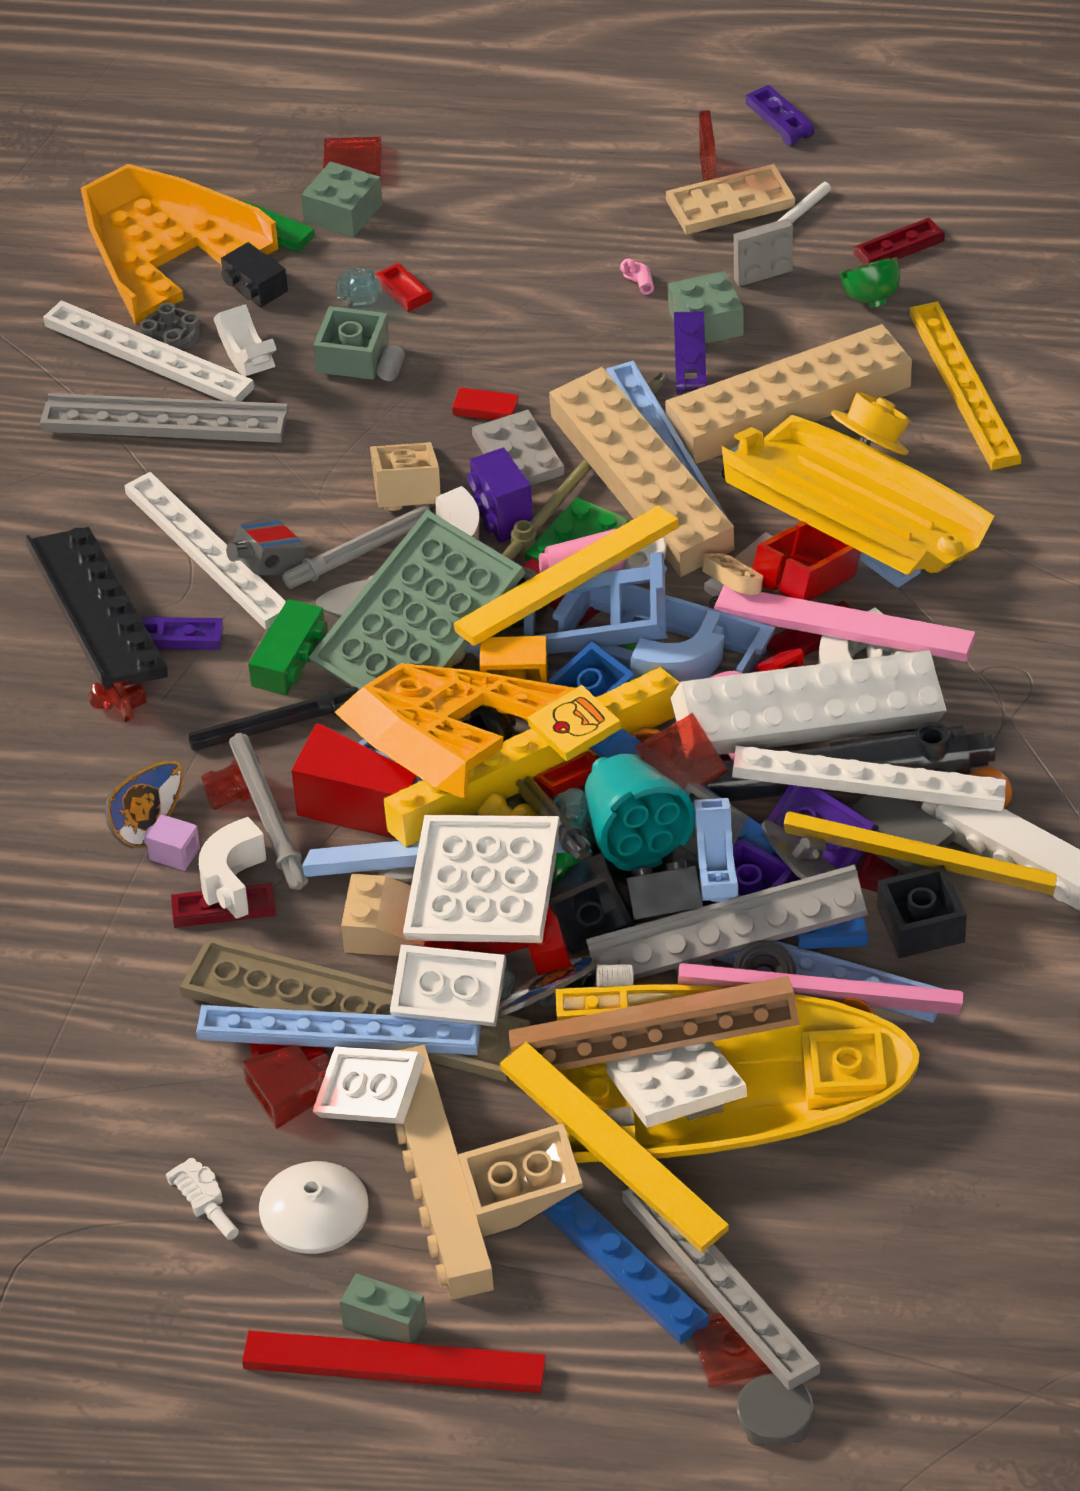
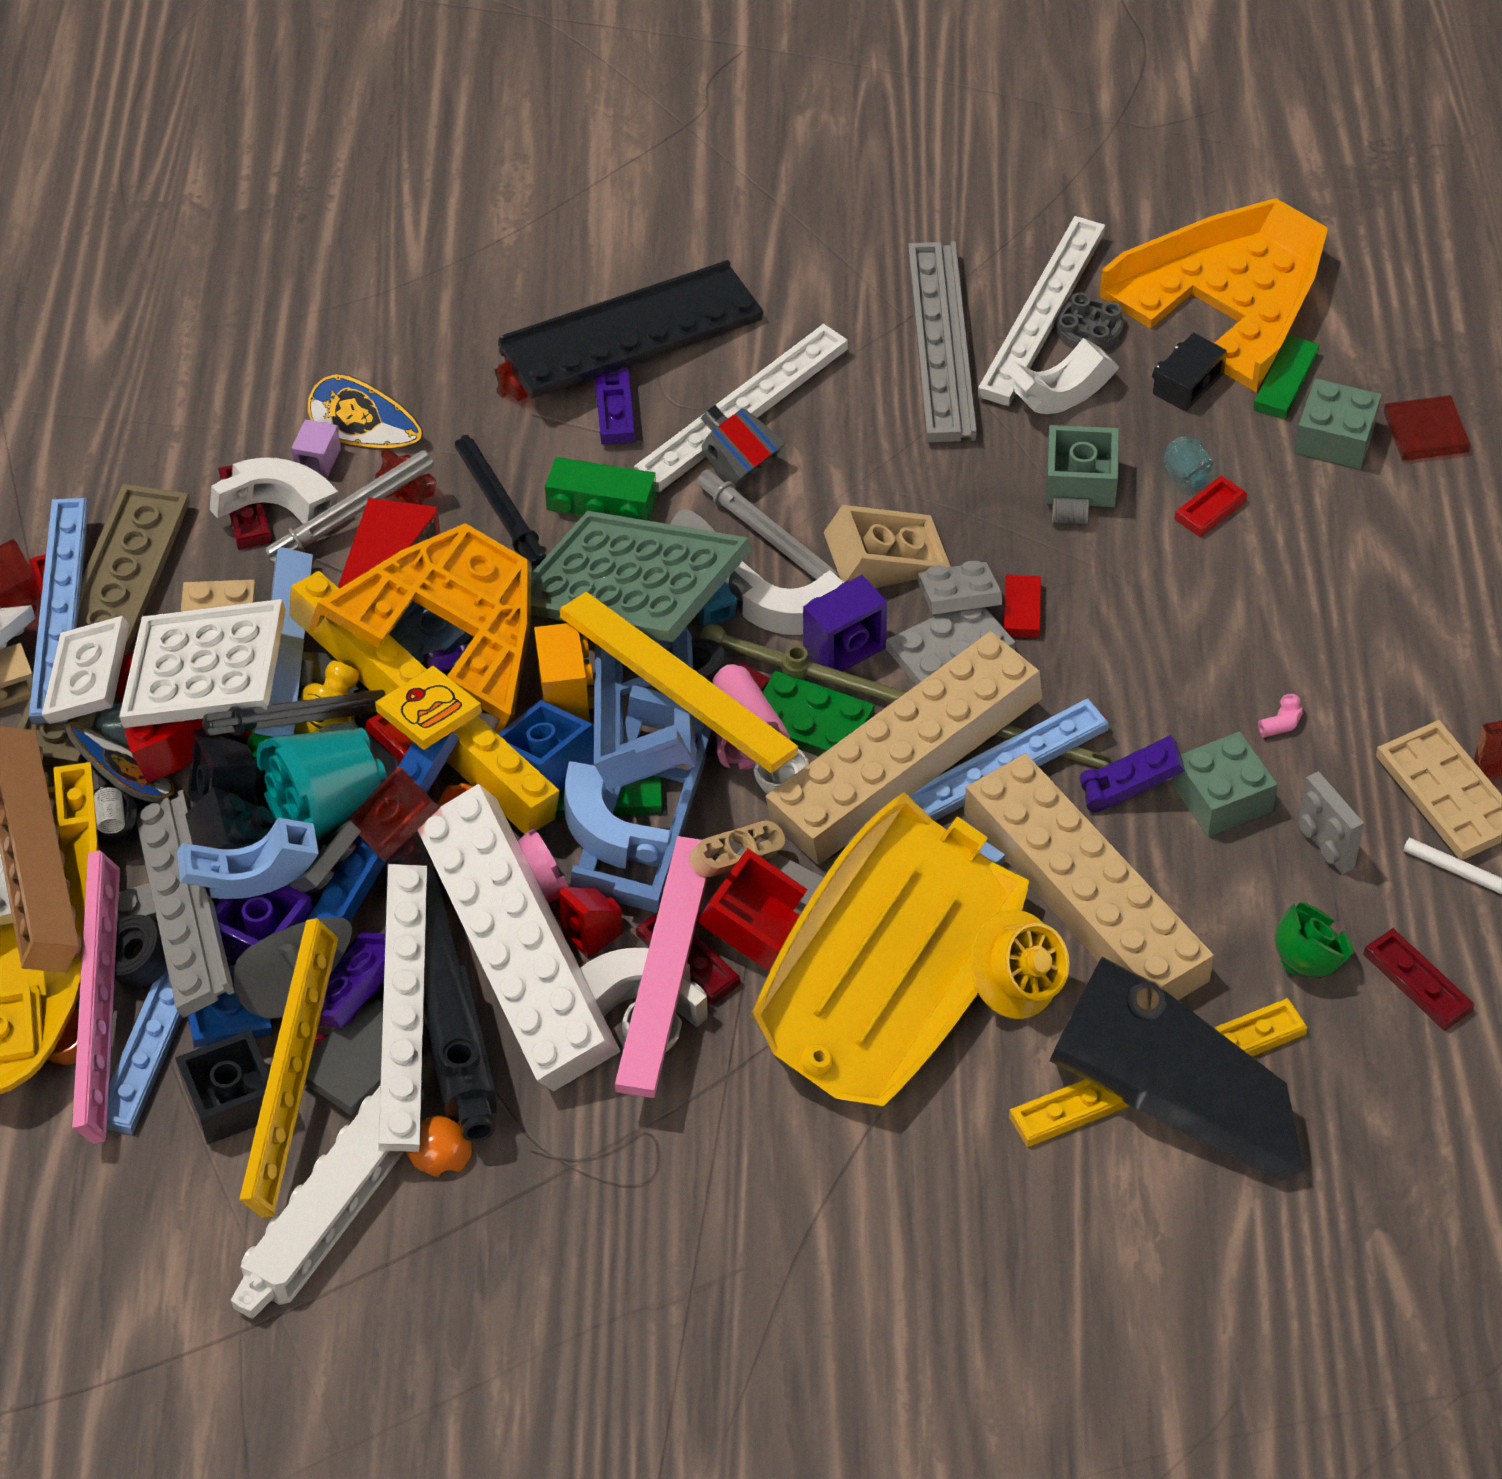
camera: 80 degrees right, 5 degrees up
(464, 432) = (959, 587): none -> light grey plate
(975, 361) = (1179, 1071): none -> black panel

